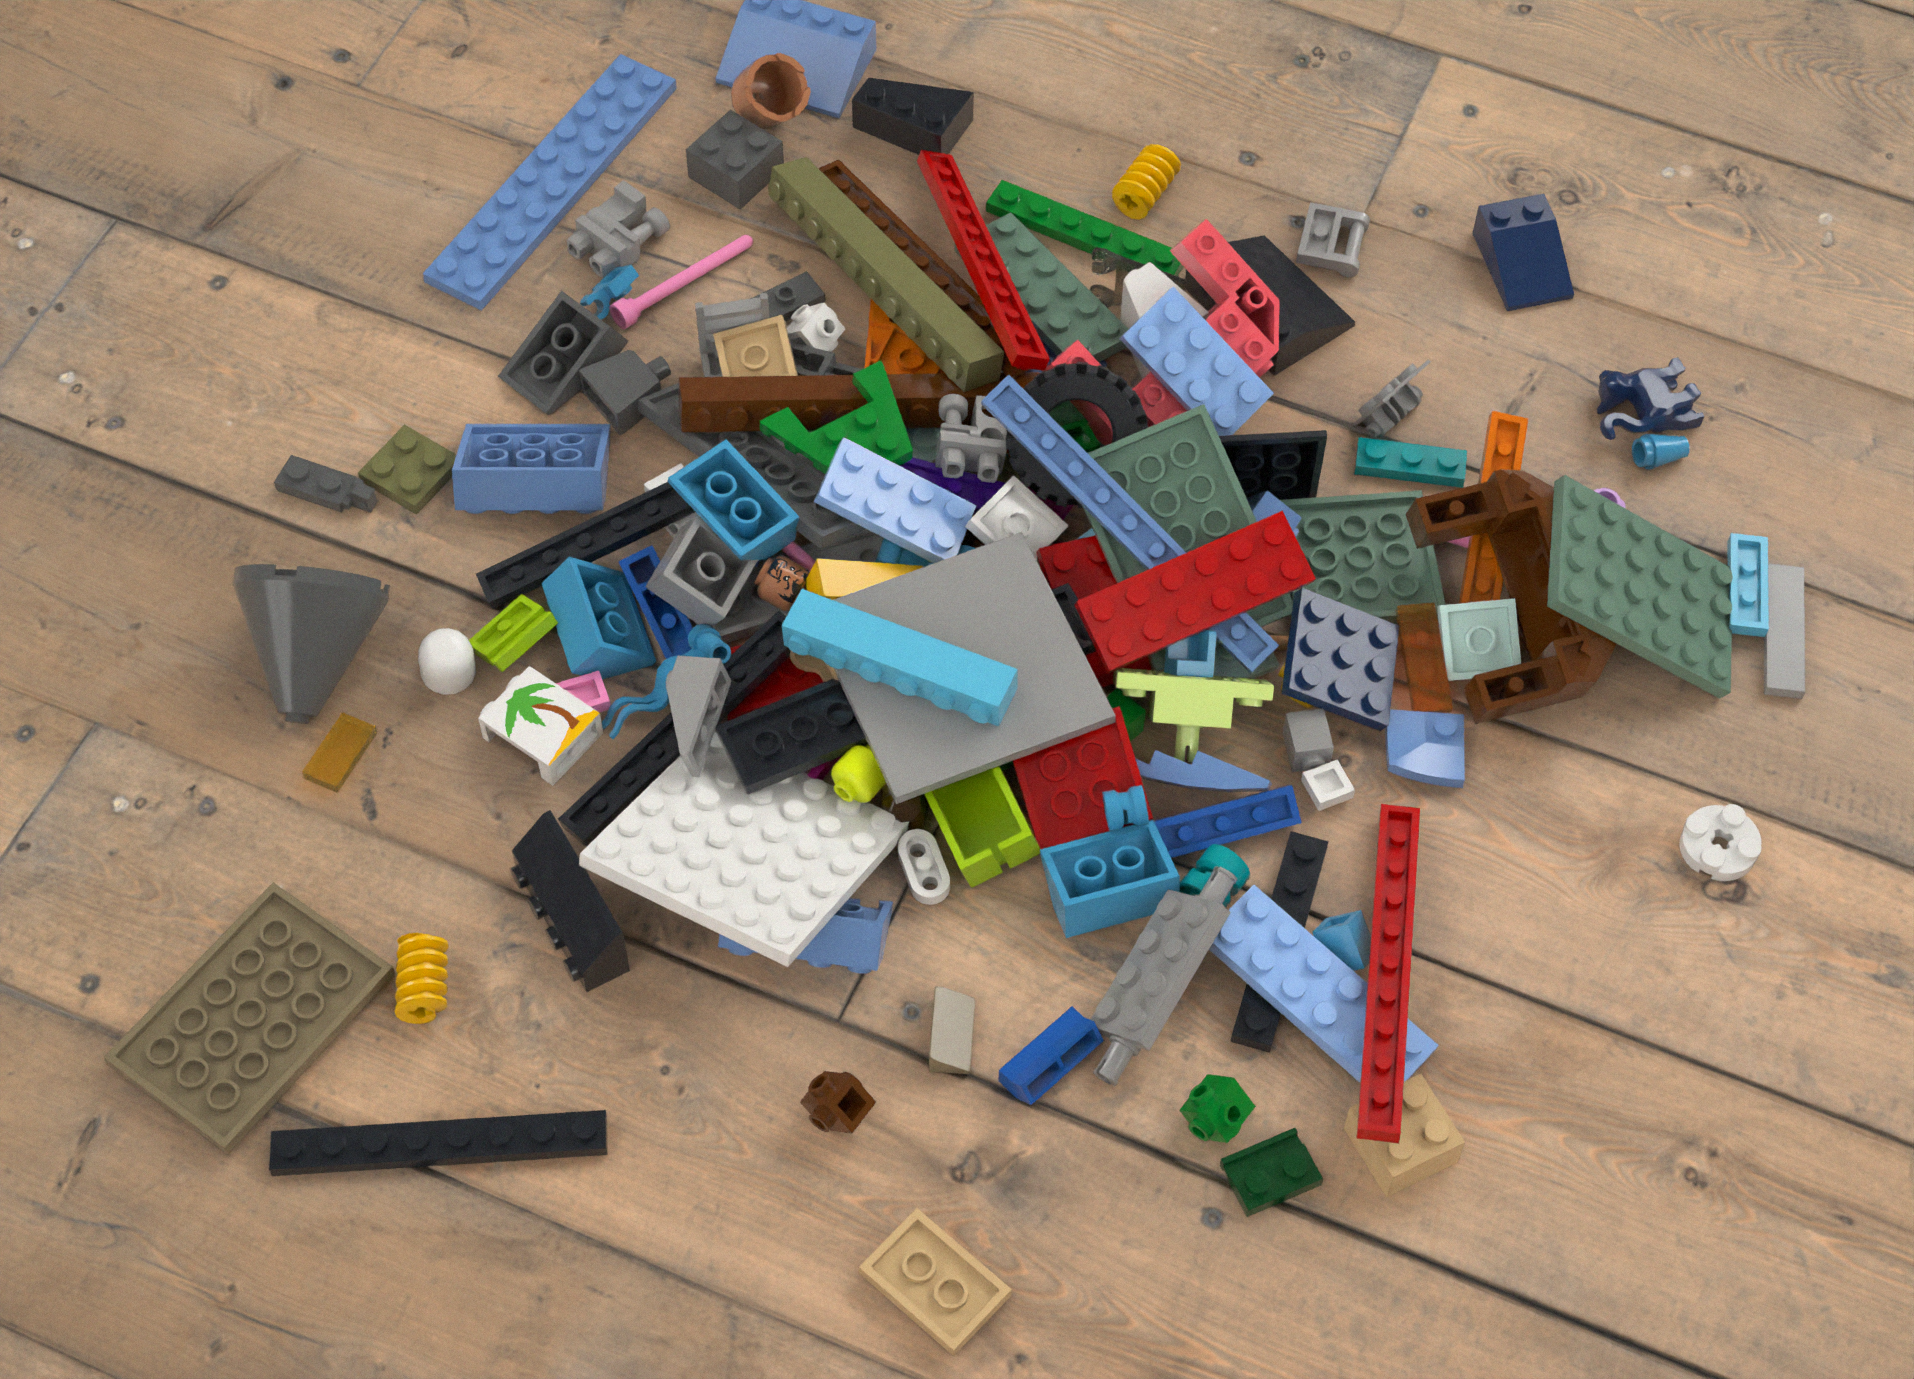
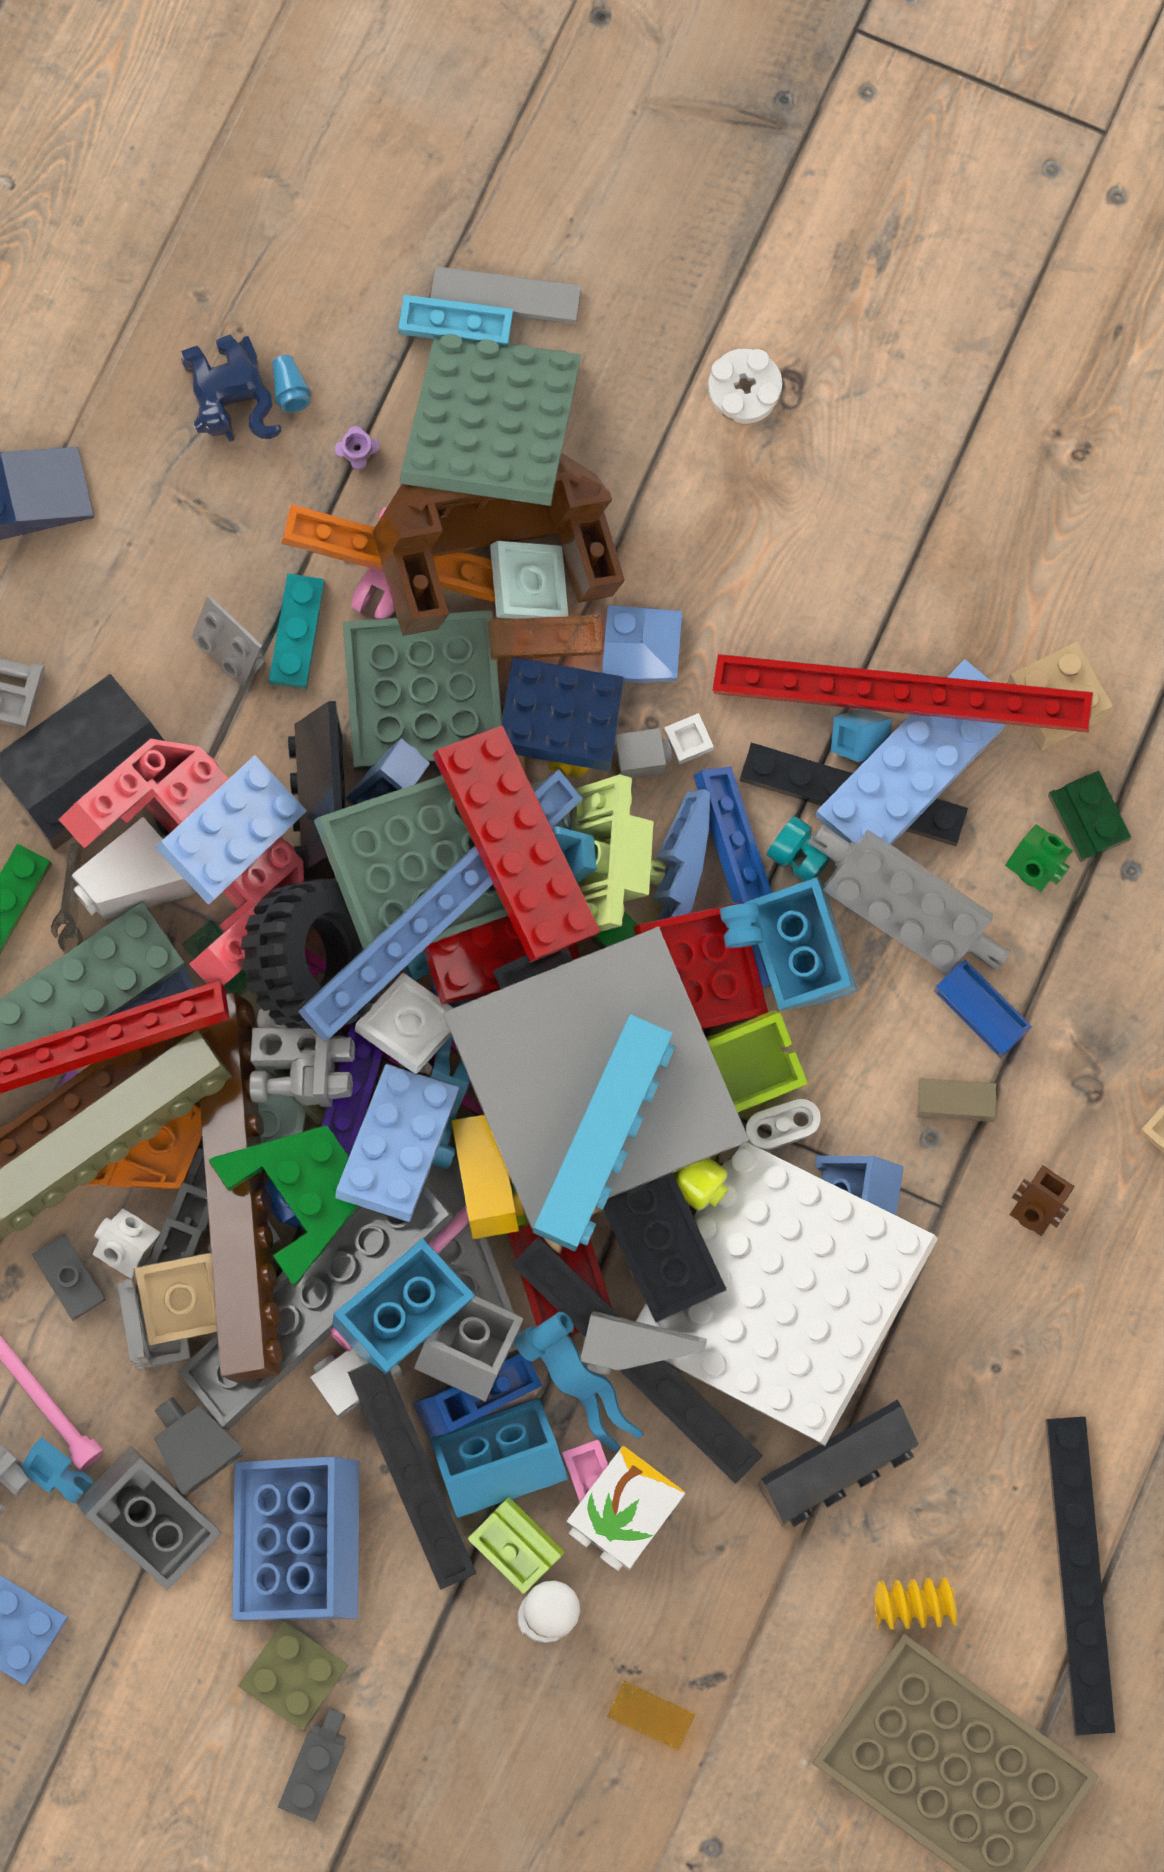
camera: 90 degrees left, 20 degrees up
(306, 629) = (522, 1752): dark grey cone -> none
(781, 582) = (471, 1260): nougat head -> none

